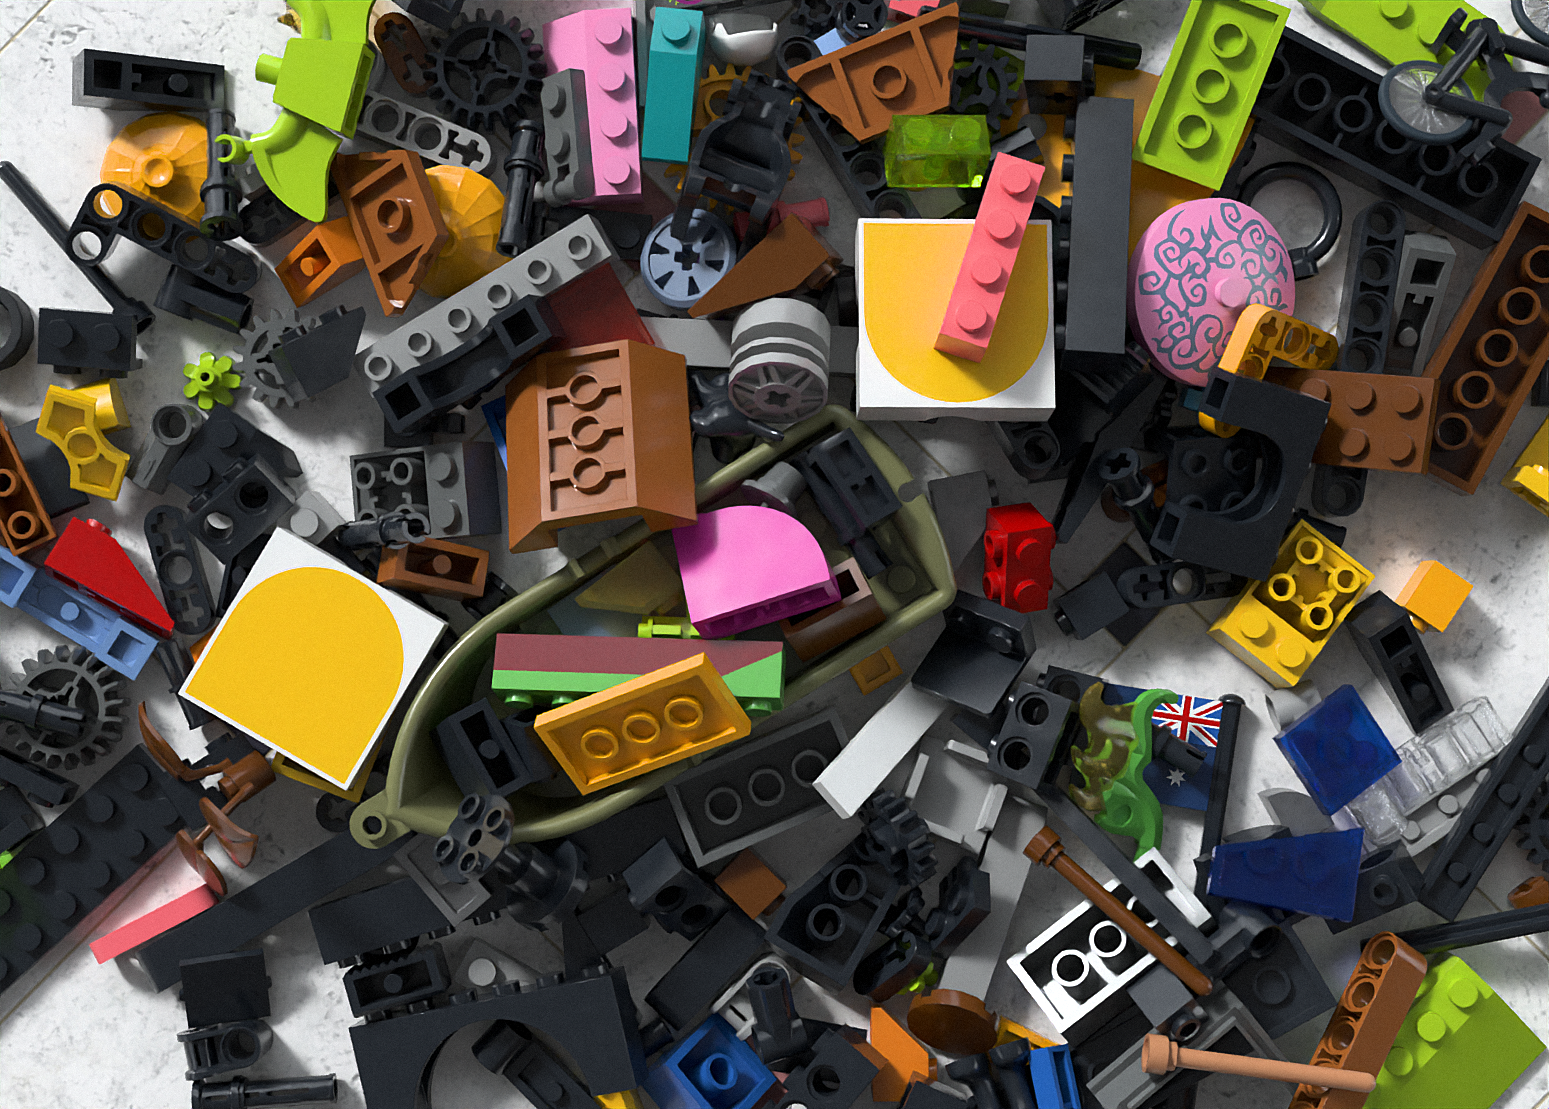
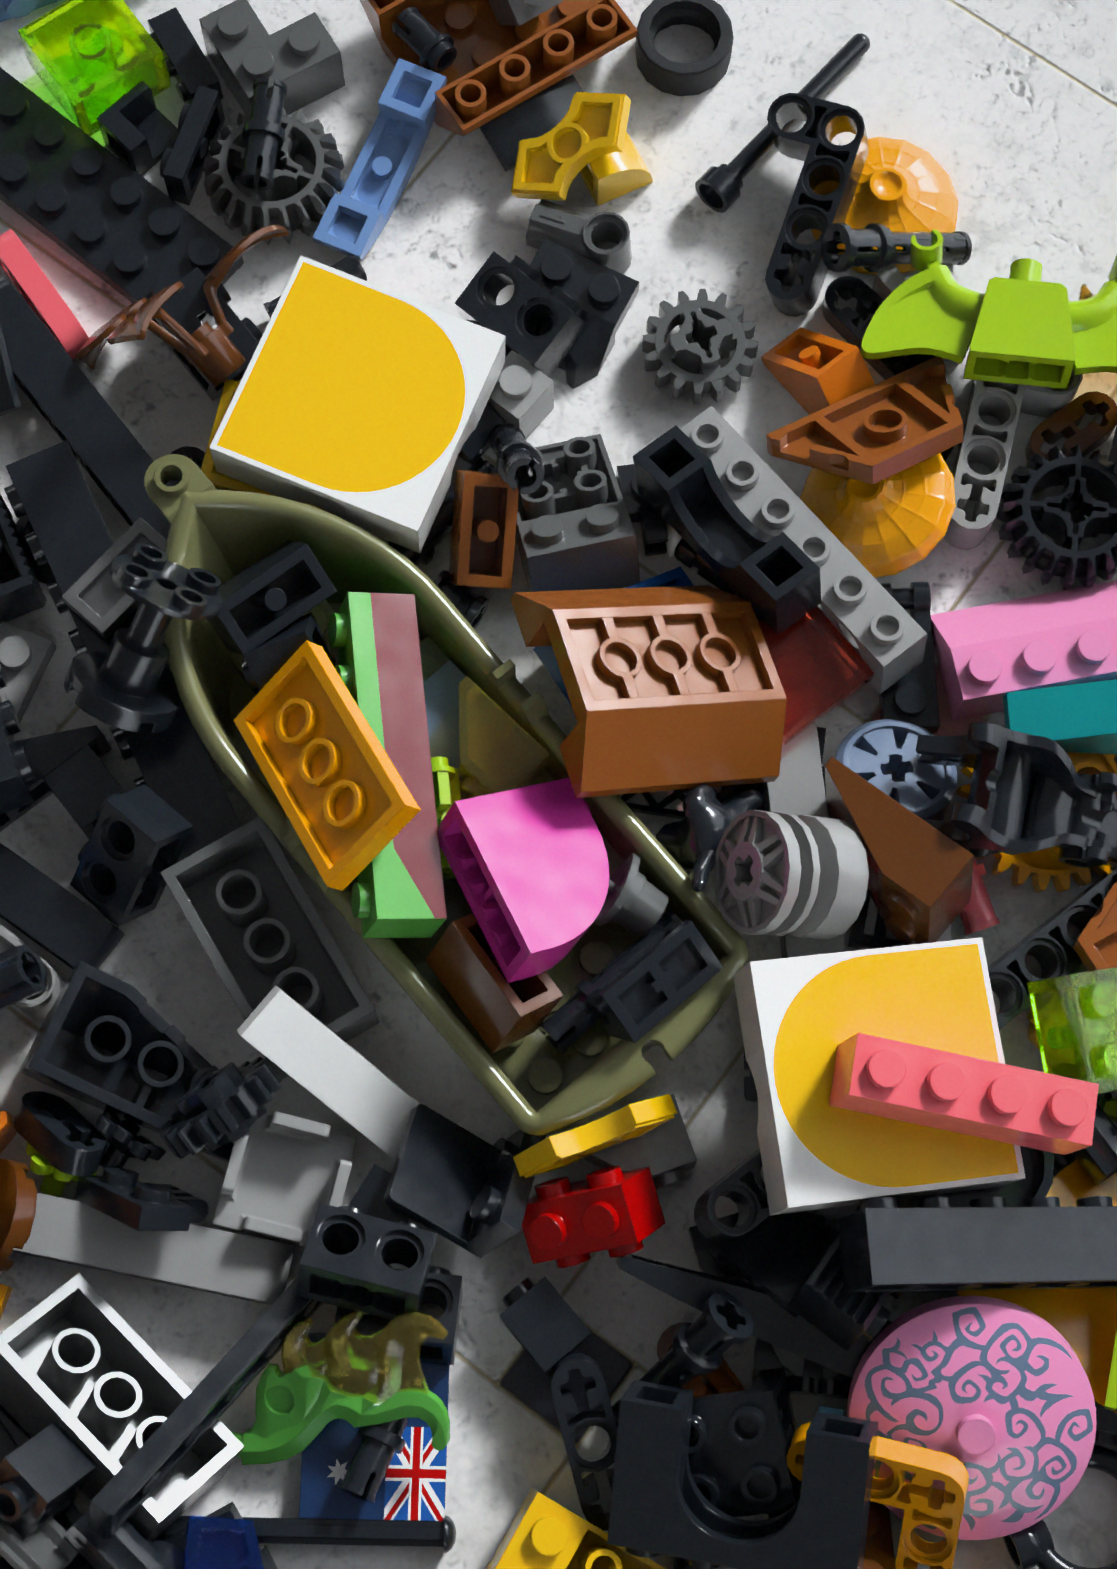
camera: 80 degrees right, 15 degrees down
(88, 340) = (685, 140): black bracket -> none
(99, 569) = (435, 182): red slope -> none
(145, 83) = (984, 165): black slope -> none
(162, 561) = (451, 252): black beam -> none
(197, 298) = (750, 249): black piece -> none
(217, 386) = (662, 277): lime plant -> none
(320, 356) = (710, 372): black slope -> none
(524, 170) = (965, 570): black pin -> none
(567, 138) = (1012, 610): dark grey plate -> none
(752, 883) = (150, 949): reddish brown brick -> none
(875, 670) = (432, 1065): light orange tile -> none
(962, 546) = (610, 1130): none -> yellow tile
(1048, 851) = (225, 1301): reddish brown piece -> none

